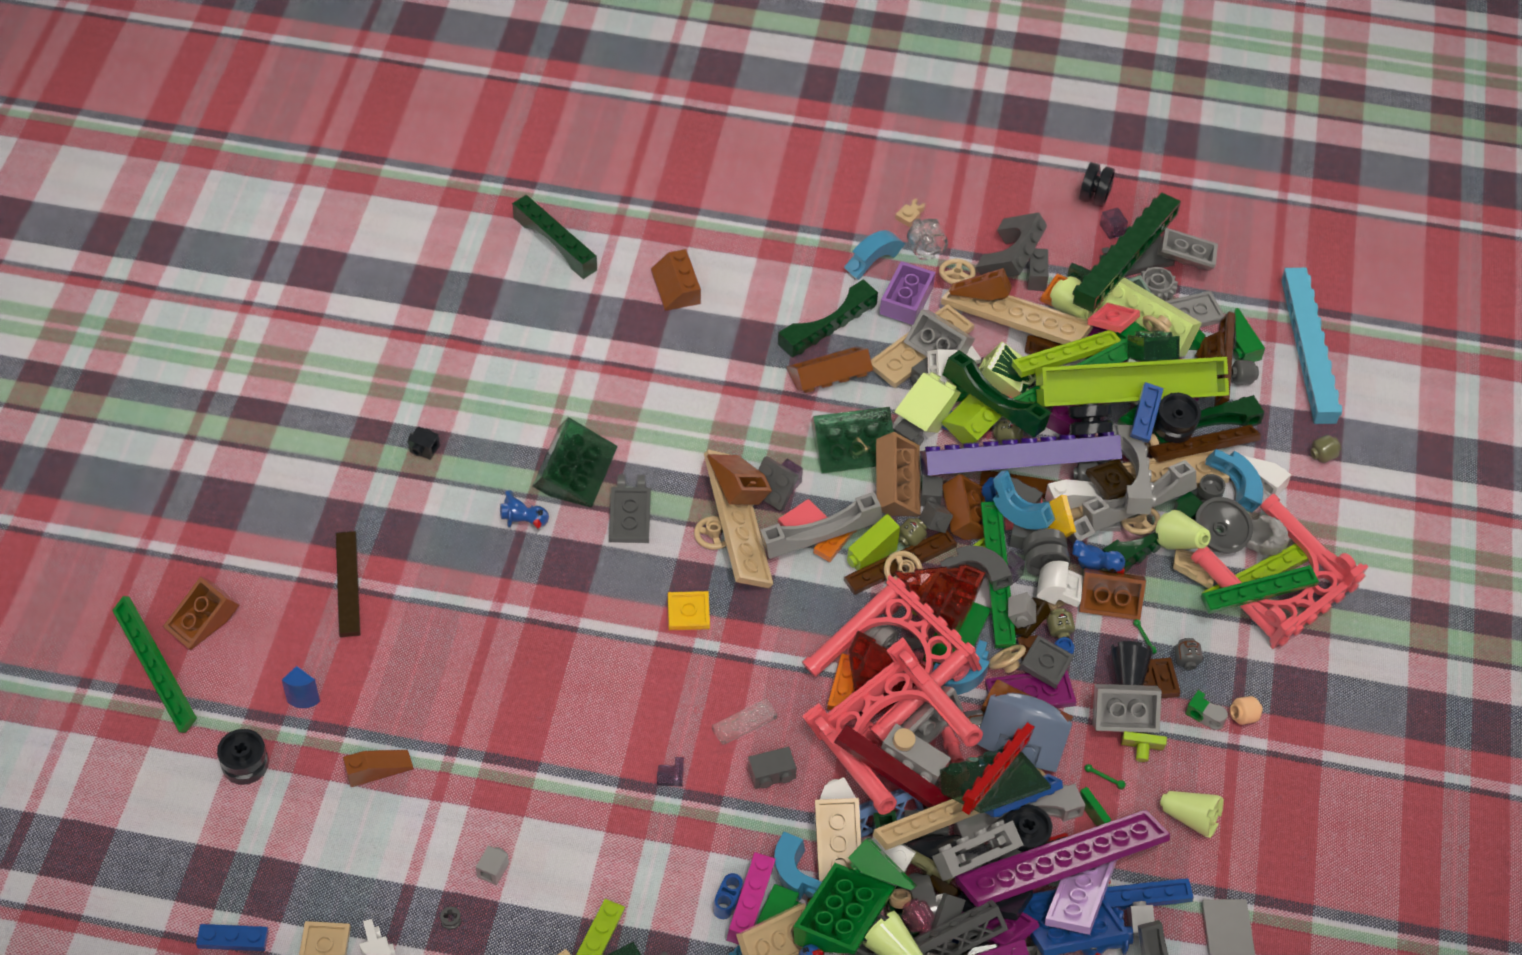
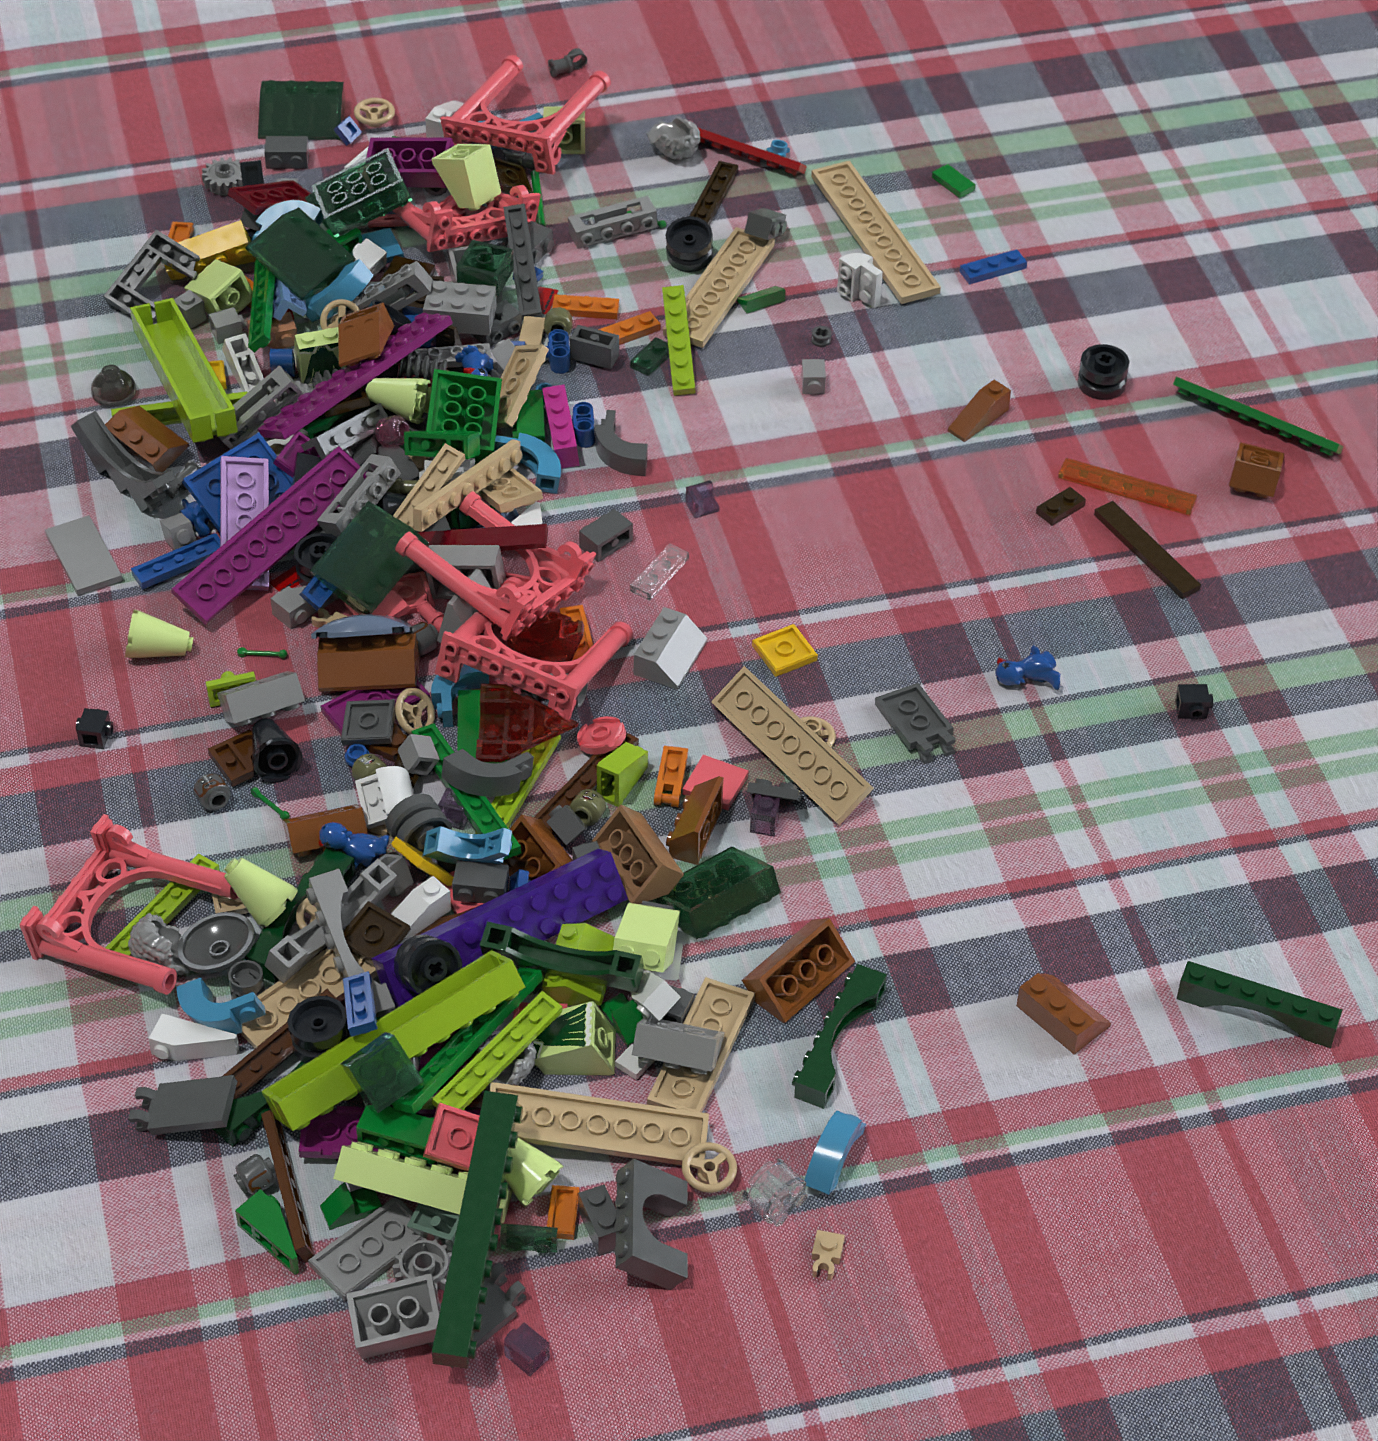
camera: 155 degrees right, 5 degrees down
(300, 689) = (1098, 430): blue brick -> none
(314, 646) = (1127, 486): none -> clear orange tile
(381, 650) = (1060, 506): none -> dark brown plate
(575, 464) = (1012, 740): clear green slope -> none
(713, 846) = (617, 453): none -> dark grey arch
(739, 479) = (815, 766): dark orange slope -> none
(781, 641) = (669, 649): none -> light grey slope
(785, 539) = (654, 776): light grey arch -> none
(841, 484) = (697, 821): none -> dark orange slope
(868, 584) = (601, 736): none -> coral tile
(885, 814) = (472, 480): none -> tan plate
(904, 739) = (478, 550): tan tile -> none
(907, 293) = (757, 1103): medium lavender brick -> none
(909, 565) = (572, 758): tan piece -> none
(985, 286) = (659, 1131): dark orange slope -> none
(1000, 764) = (367, 552): red plate -> none
(1094, 808) = (260, 610): green tile -> none
(1097, 183) = (576, 1388): black wheel -> none
(1159, 323) = (385, 1133): tan piece -> none
(1206, 712) = (172, 743): leg -> none
(1211, 346) = (310, 1180): reddish brown wing -> none
(1246, 710) = (127, 758): light nougat head -> none
(1259, 589) = (147, 868): green tile -> none
(1265, 749) = (94, 728): none -> black brick
(1278, 423) = (185, 1105): none -> dark grey tile
(1311, 346) = (174, 1264): medium azure brick -> none
(1325, 448) = (112, 1105): olive head -> none

